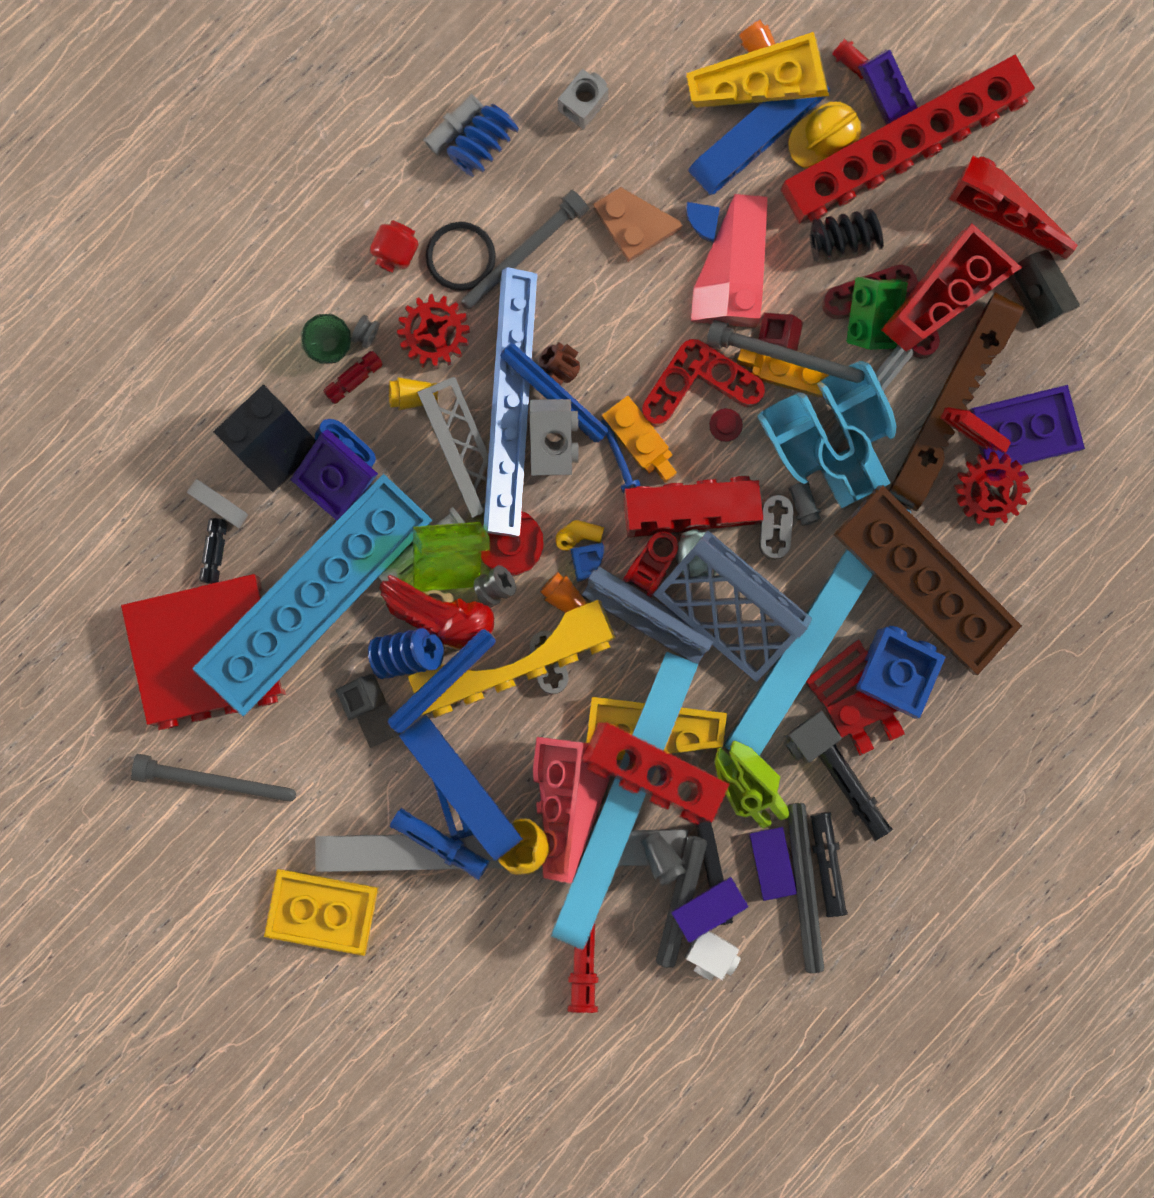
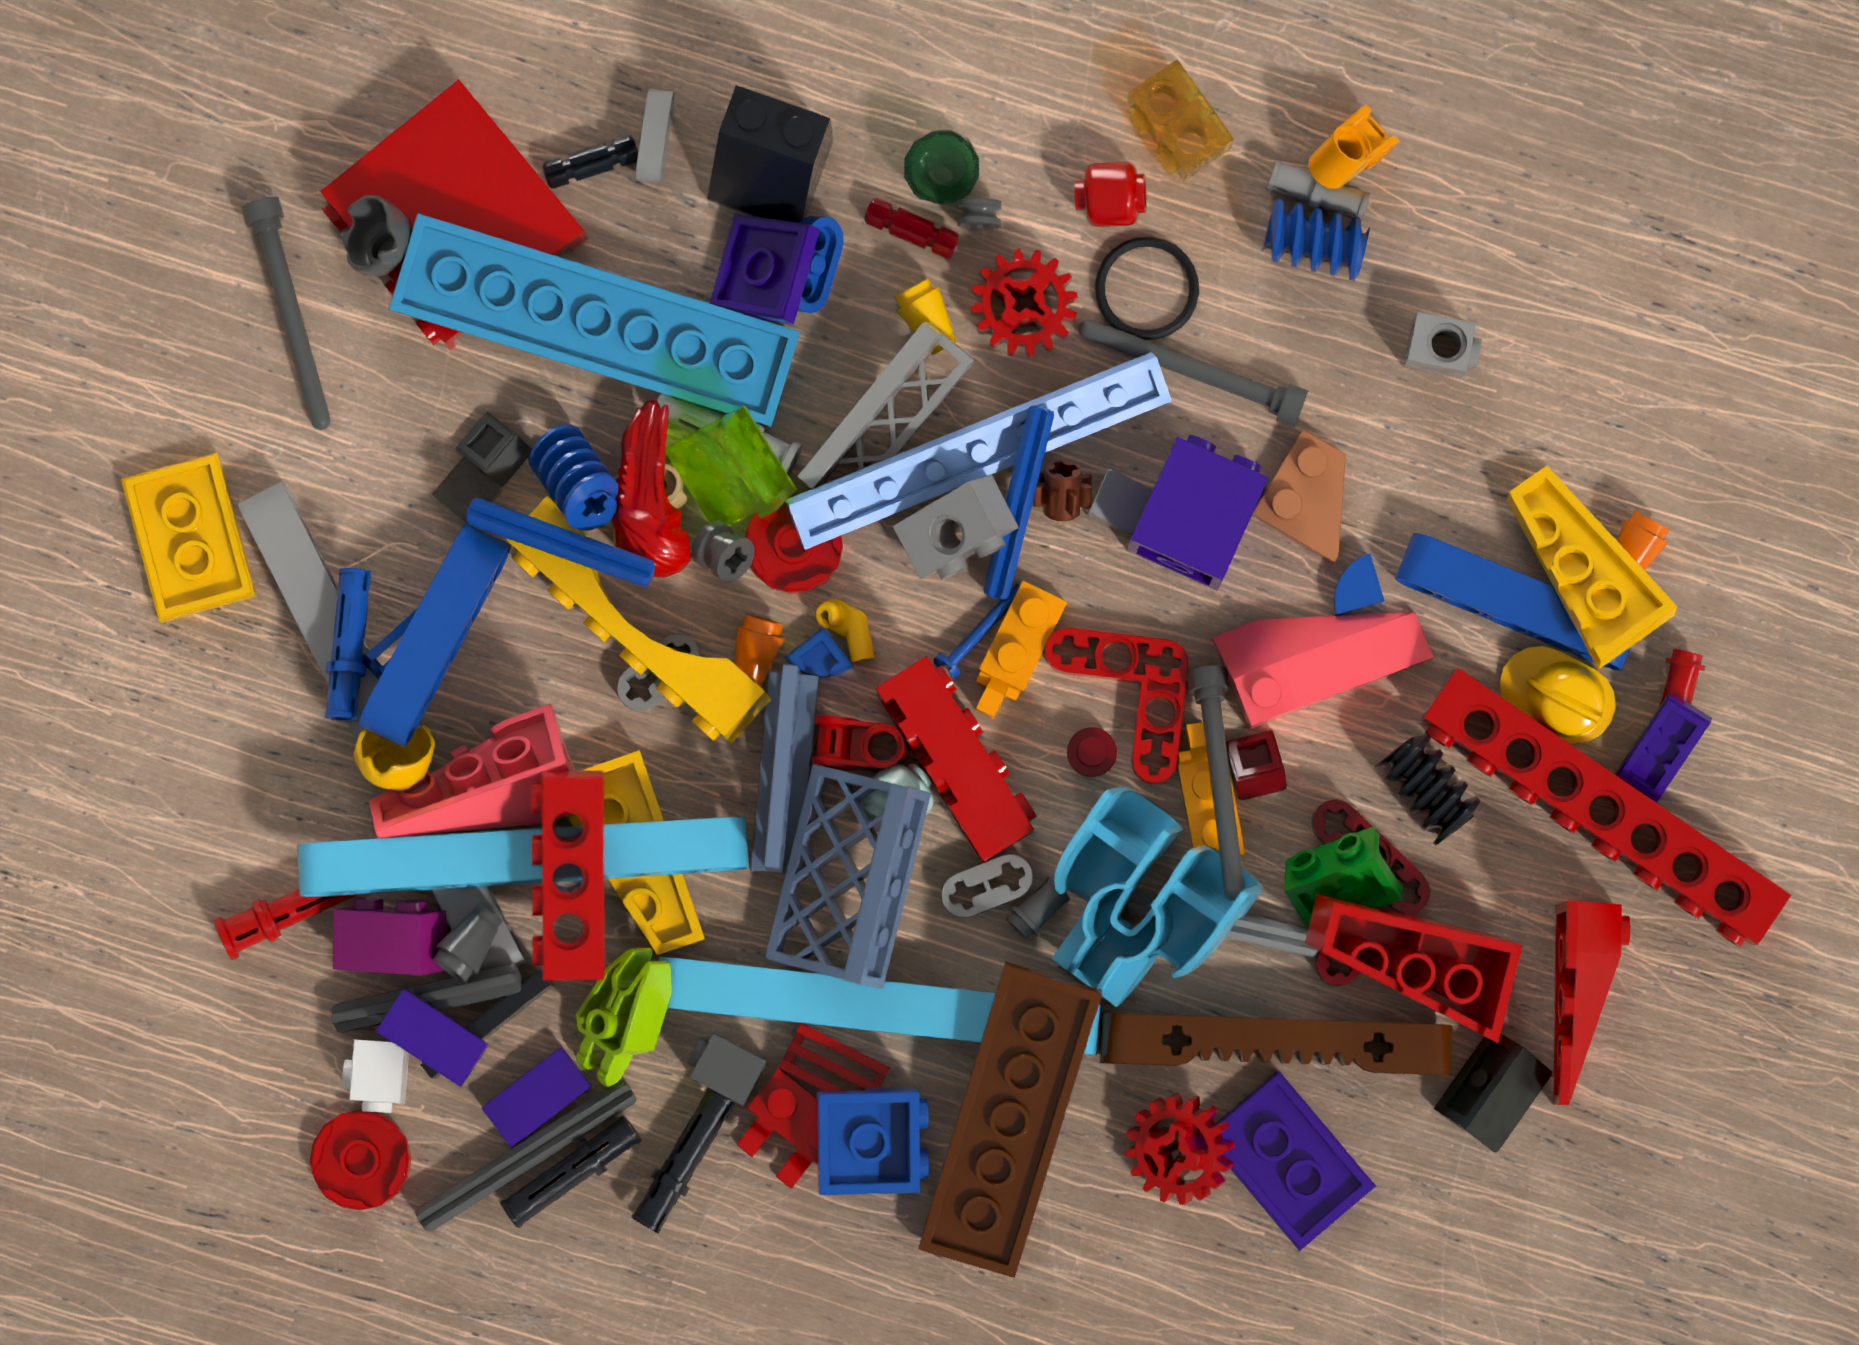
camera: 70 degrees right, 0 degrees up
(193, 701) = (377, 236): none -> dark grey hair
(369, 176) = (1190, 115): none -> clear yellow brick
(439, 92) = (1351, 150): none -> light orange piece
(582, 334) = (1120, 502): none -> light grey slope
(614, 289) = (1198, 511): none -> dark purple slope
(633, 907) = (387, 937): none -> magenta brick
(759, 991) = (360, 1159): none -> red tile
(975, 429) = (1242, 1084): red tile -> none

